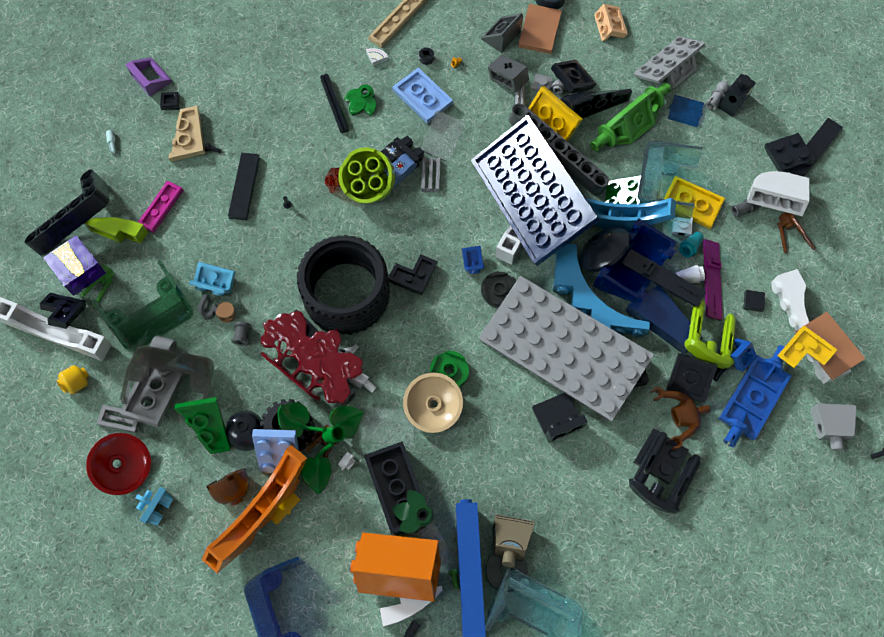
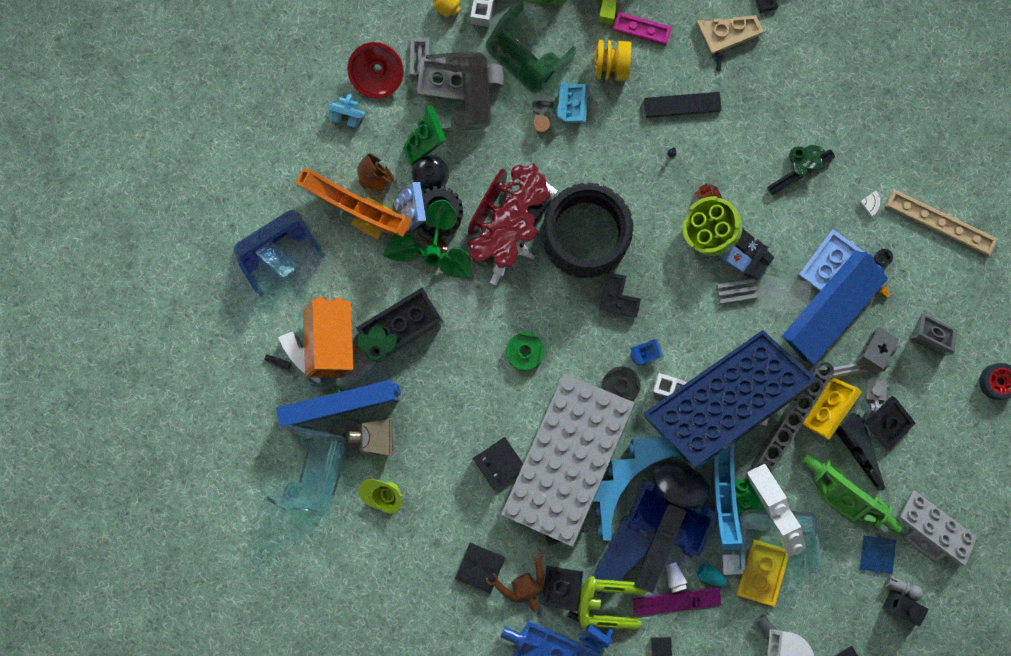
camera: 85 degrees right, 15 degrees up
(183, 232) = (613, 60): none -> yellow wheel
(241, 333) = (523, 145): dark grey bush -> none
(297, 612) = (276, 261): none -> clear light blue bracket
(324, 95) = (809, 160): none -> dark green plate
(347, 461) = (418, 273): white plate -> none
(361, 102) = (808, 197): green plate -> none
(431, 388) = (474, 340): tan dish -> none
(463, 97) = (835, 306): none -> blue brick
(540, 28) = (950, 376): nougat tile -> none
(575, 542) = (381, 495): none -> lime piece
(610, 22) = (976, 455): light nougat bracket -> none
(639, 166) = (778, 510): none -> white arch
(653, 496) = (438, 563): black piece -> none

